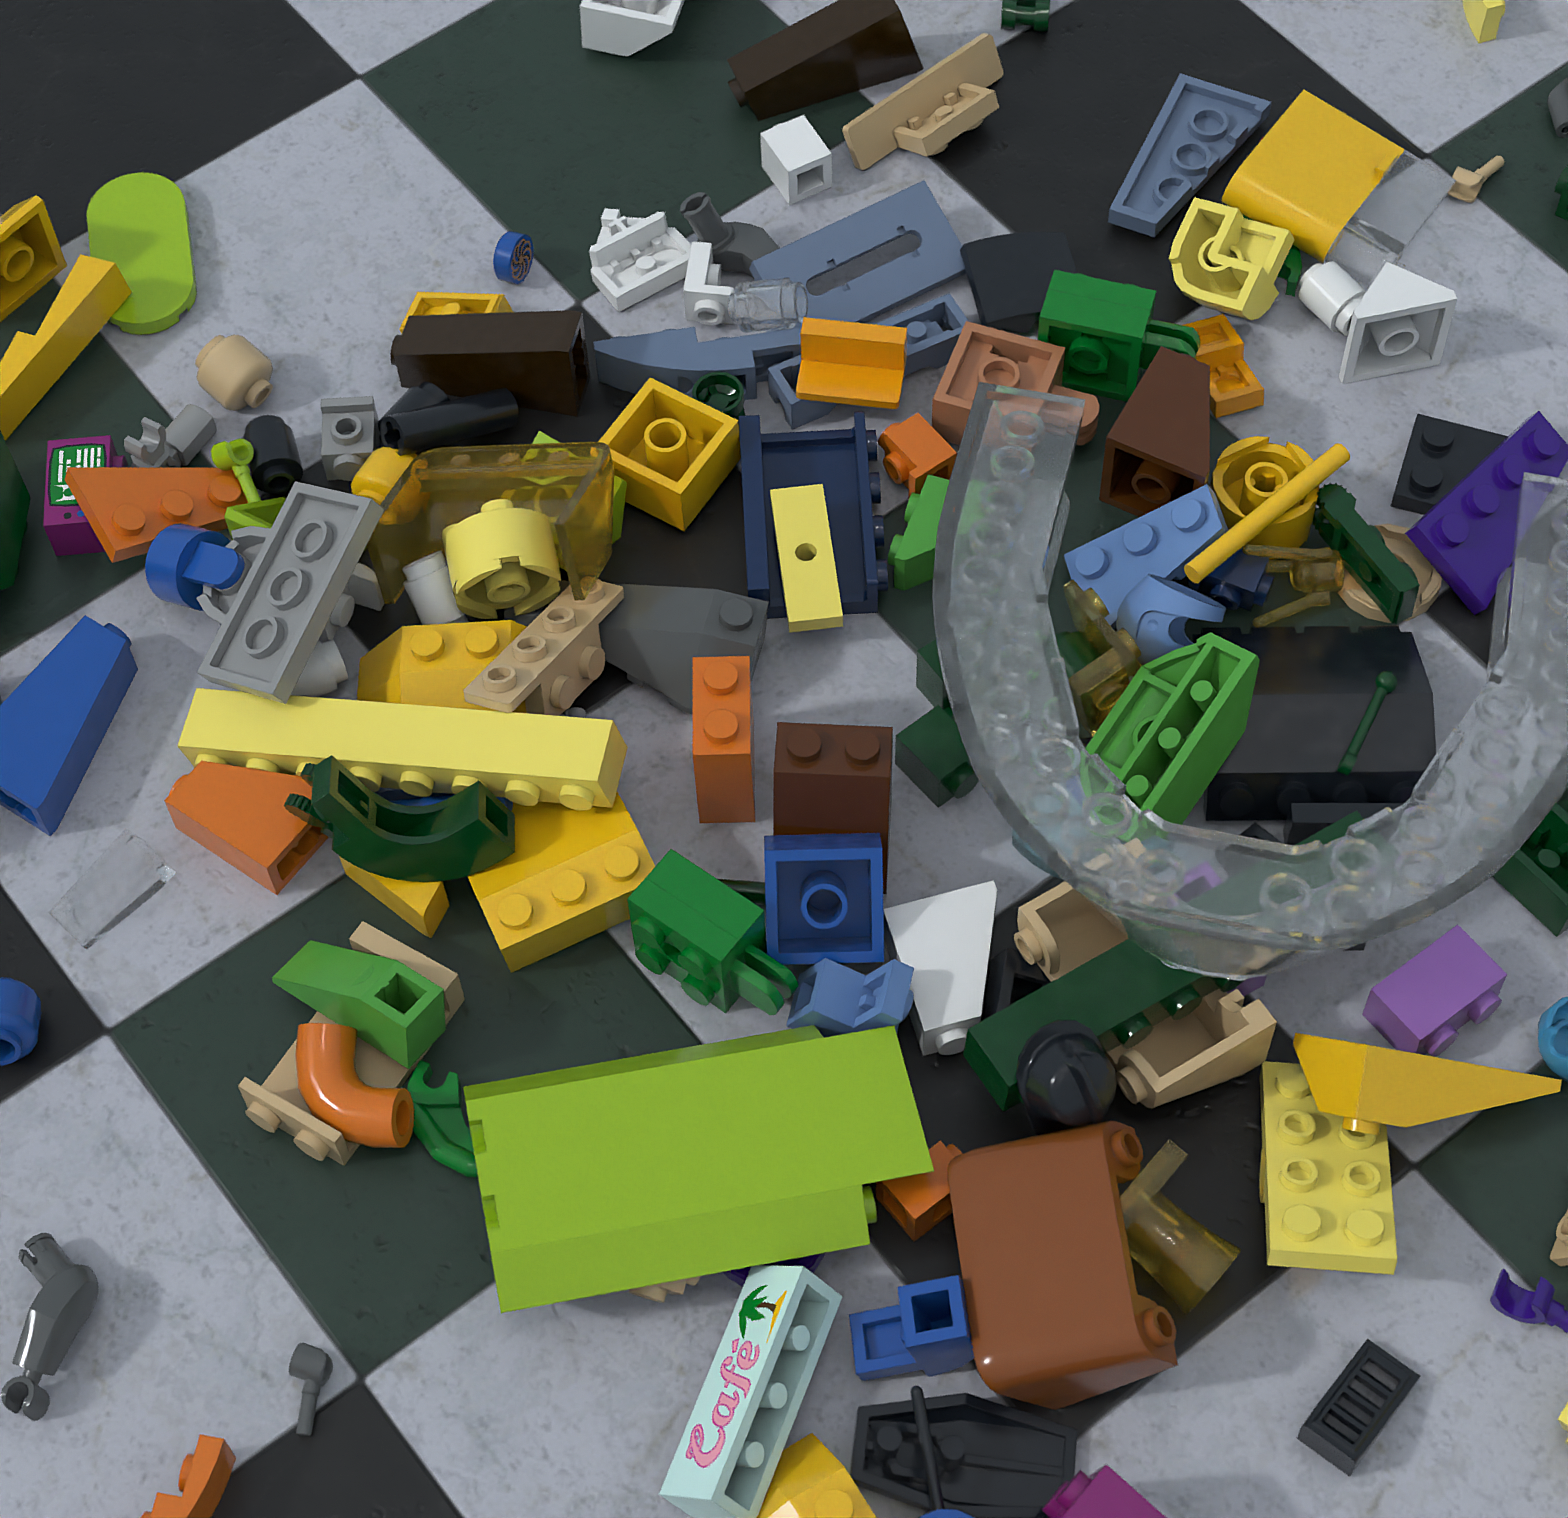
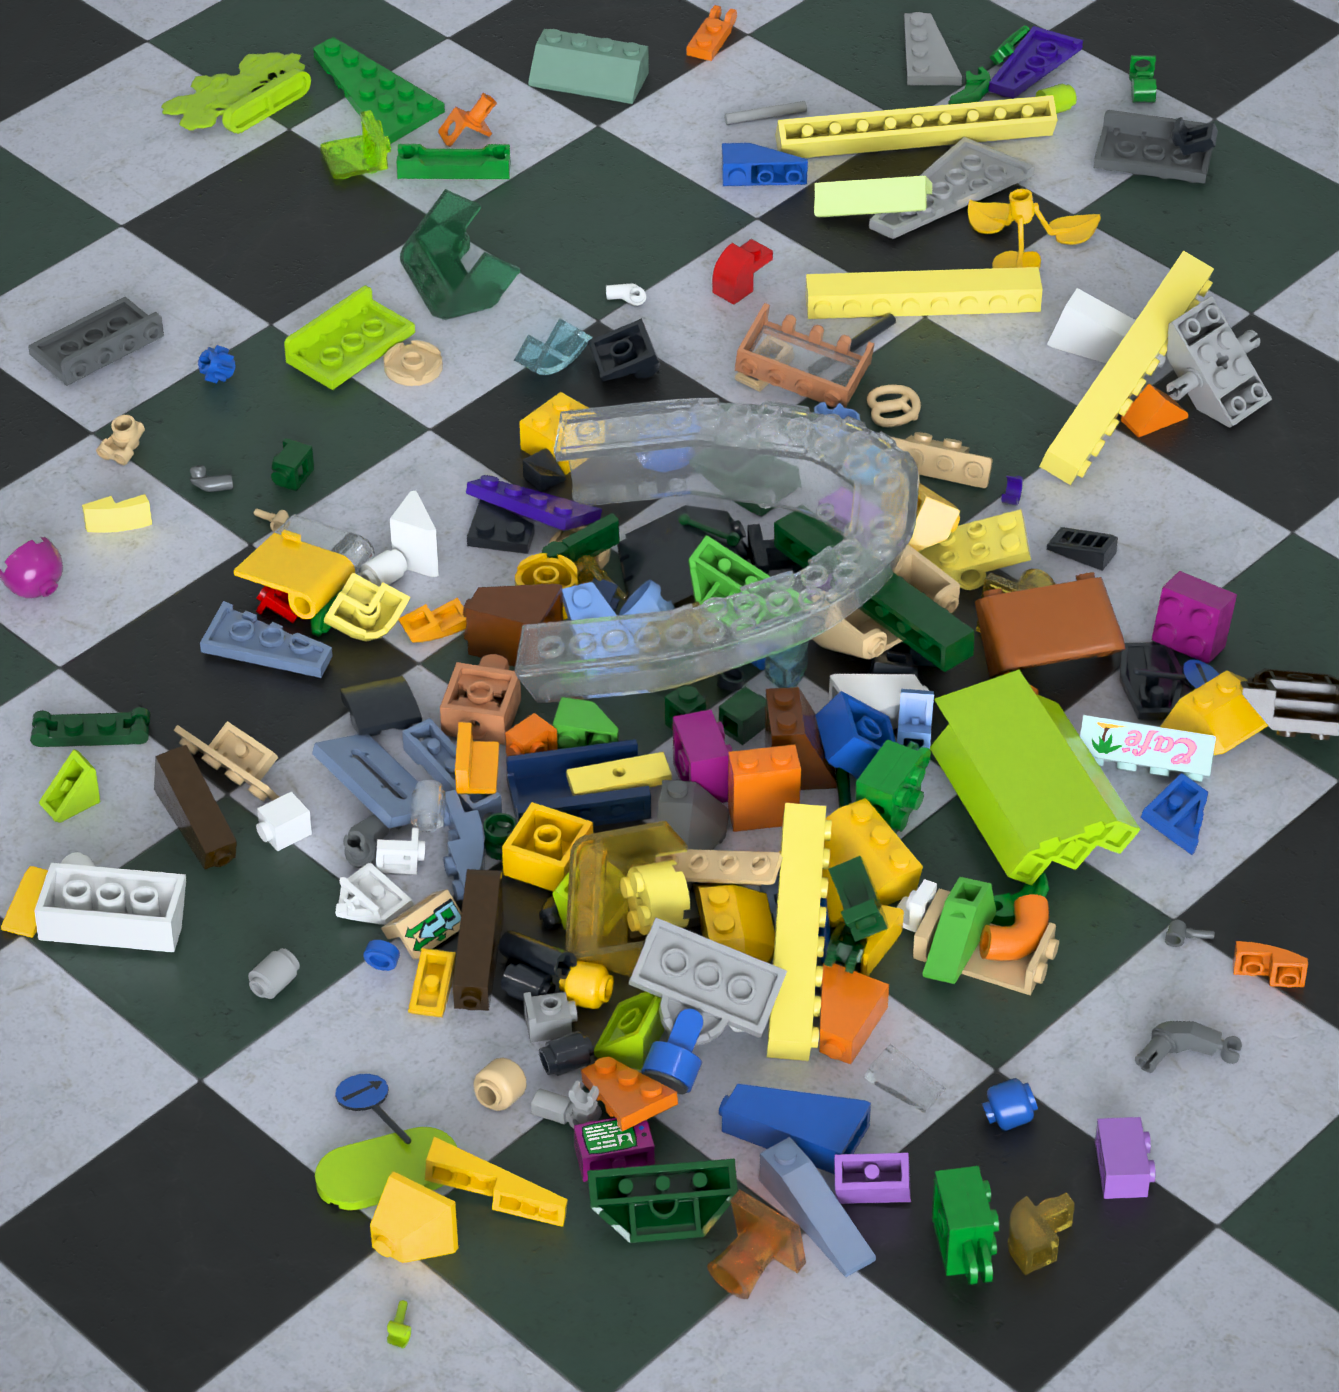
camera: 100 degrees left, 15 degrees down
(235, 457) = (580, 1058): lime hand -> none
(272, 232) = (365, 1093): none -> blue piece
(443, 941) = (917, 904): none -> white bracket
(505, 139) = (273, 973): none -> light grey brick
(564, 287) = (426, 923): none -> panel
(596, 1431) = (1178, 812): none -> blue wing
(818, 665) = (701, 752): none -> magenta brick
(920, 1333) = (1093, 684): blue brick -> none
(1064, 1077) = (967, 607): black piece -> none
(1107, 333) = (433, 655): green brick -> none
(1266, 513) = (574, 568): yellow bar -> none

